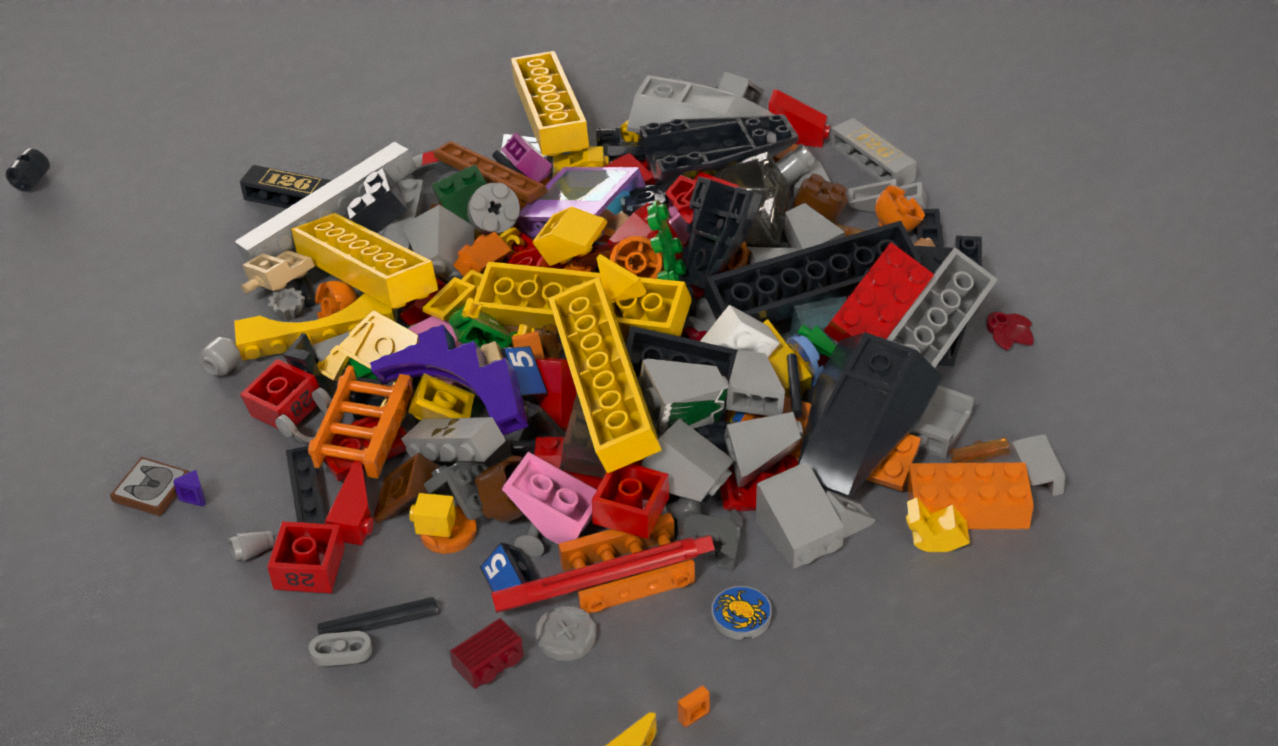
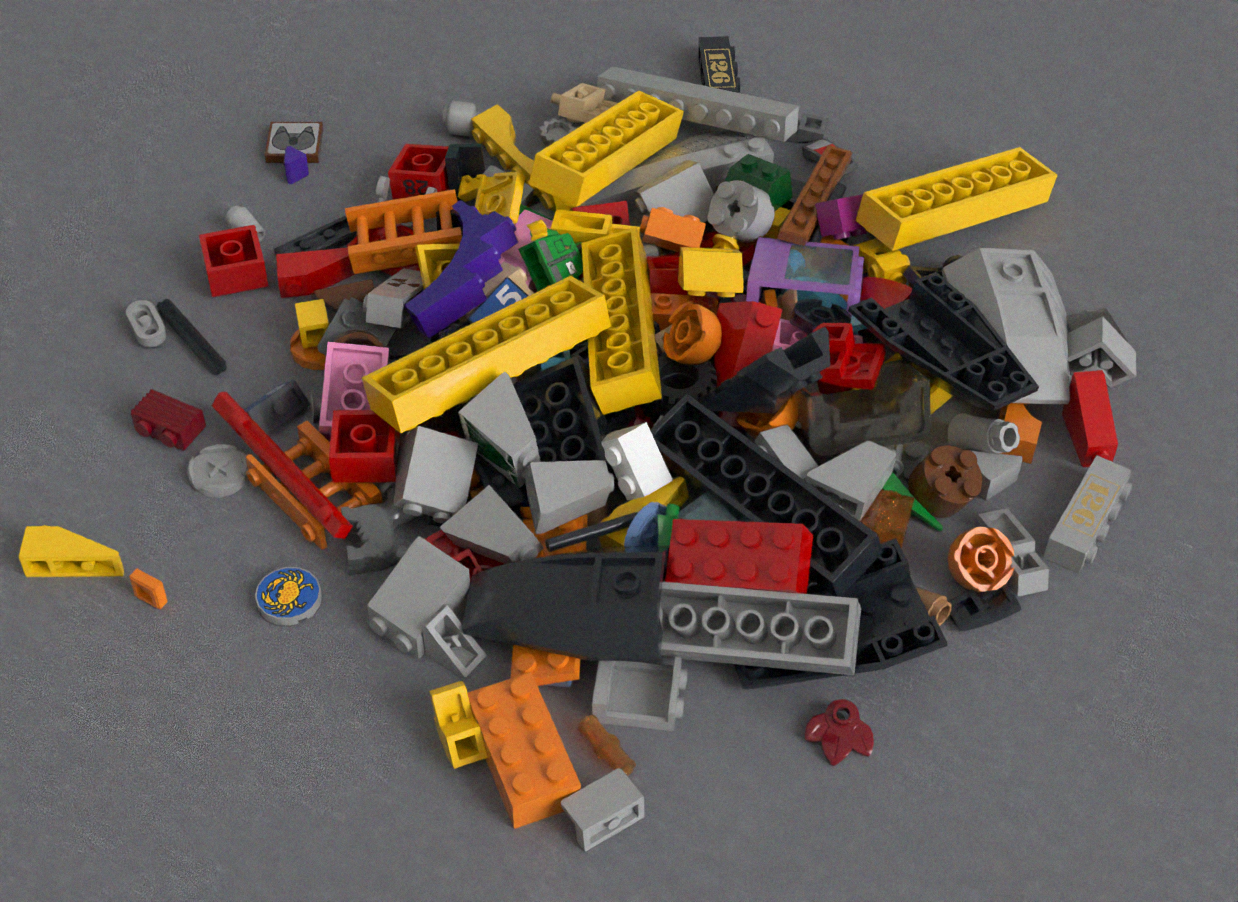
camera: 65 degrees right, 5 degrees up
(380, 203) = (706, 130): black brick -> none
(619, 282) = (631, 318): yellow slope -> none
(665, 242) = (723, 341): green plant -> none

